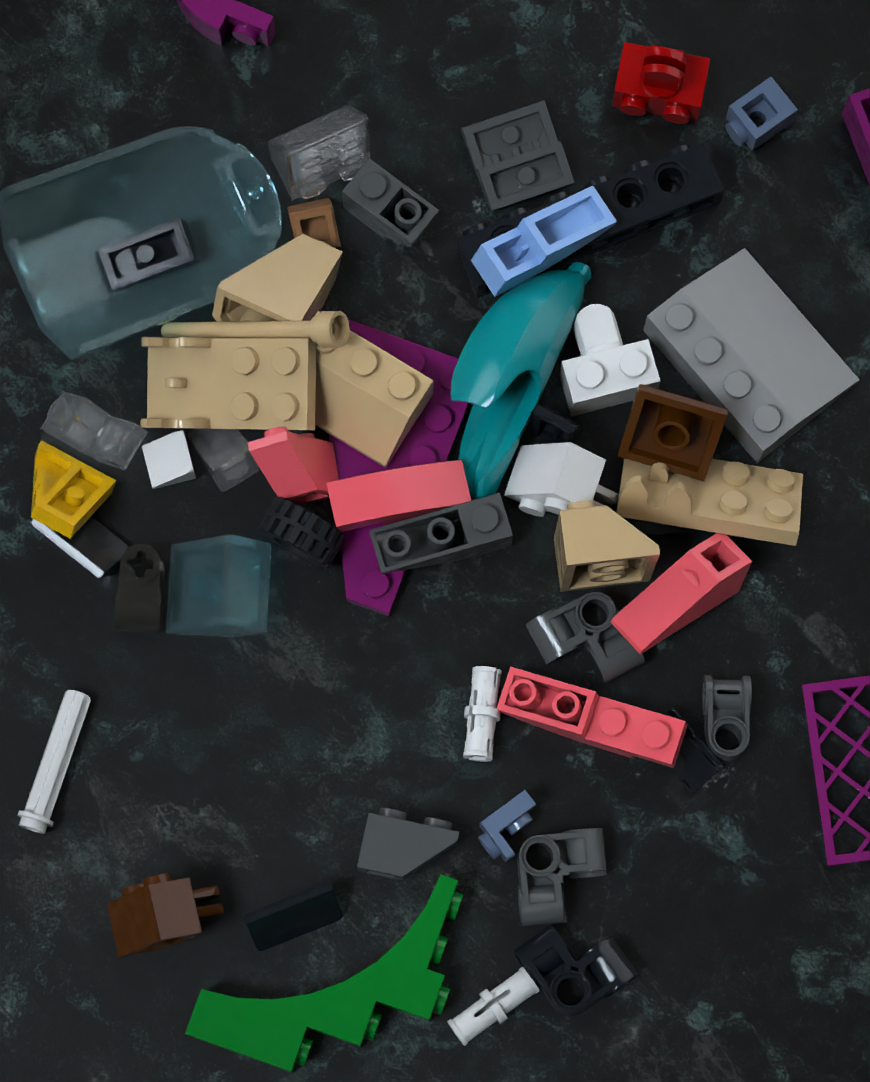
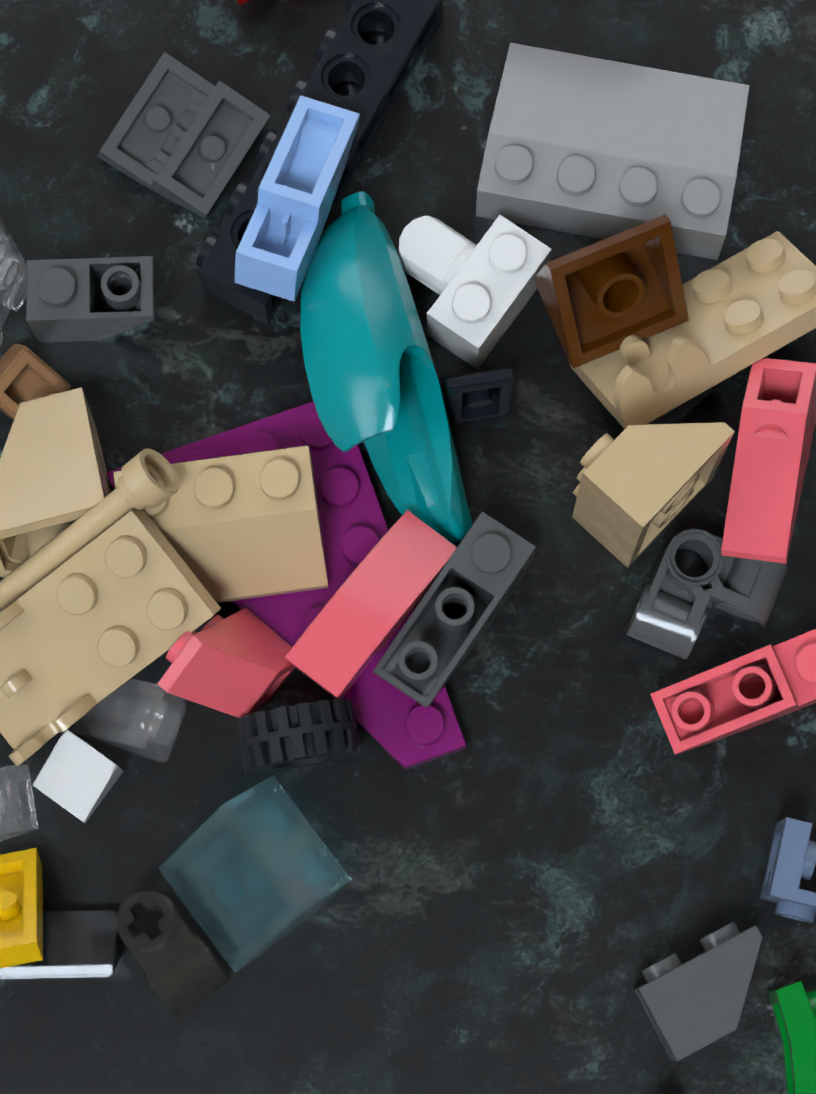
camera: 35 degrees left, 0 degrees up
(482, 713) = (662, 771): white pin -> none
(555, 475) = (530, 446): white brick -> none

